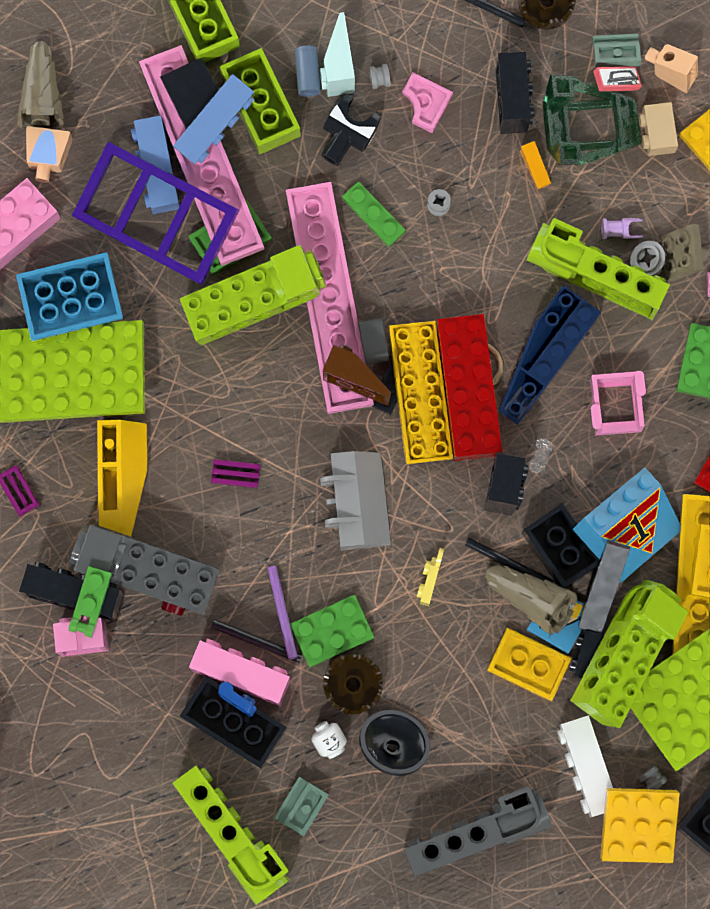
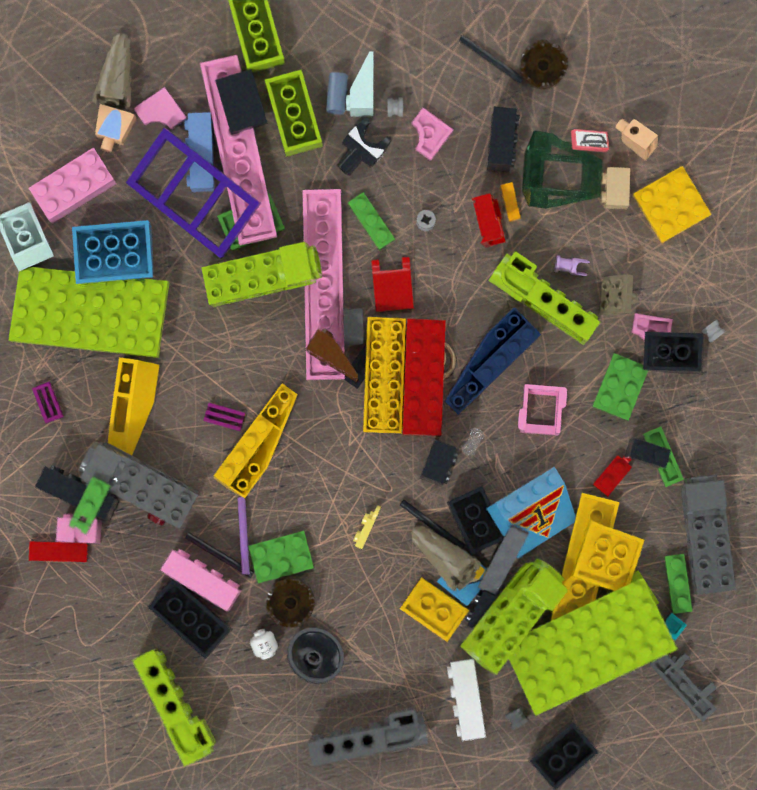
camera: 10 degrees right, 5 degrees up
(58, 669) = (58, 551): none -> red tile
(99, 122) = (160, 109): none -> bright pink tile
(213, 119) = (252, 124): medium blue brick -> none
(243, 703) = (200, 606): blue plate -> none
(281, 501) = (256, 447): none -> yellow wedge
(301, 806) = (233, 693): sand green plate -> none
(358, 500) = (320, 455): light grey piece -> none
(412, 287) = (392, 287): none -> red flag
(515, 189) = (489, 220): none -> red piece
(616, 50) = (593, 116): sand green plate -> none
(639, 825) = (499, 753): yellow plate -> none
(640, 254) = (582, 290): light grey gear -> none

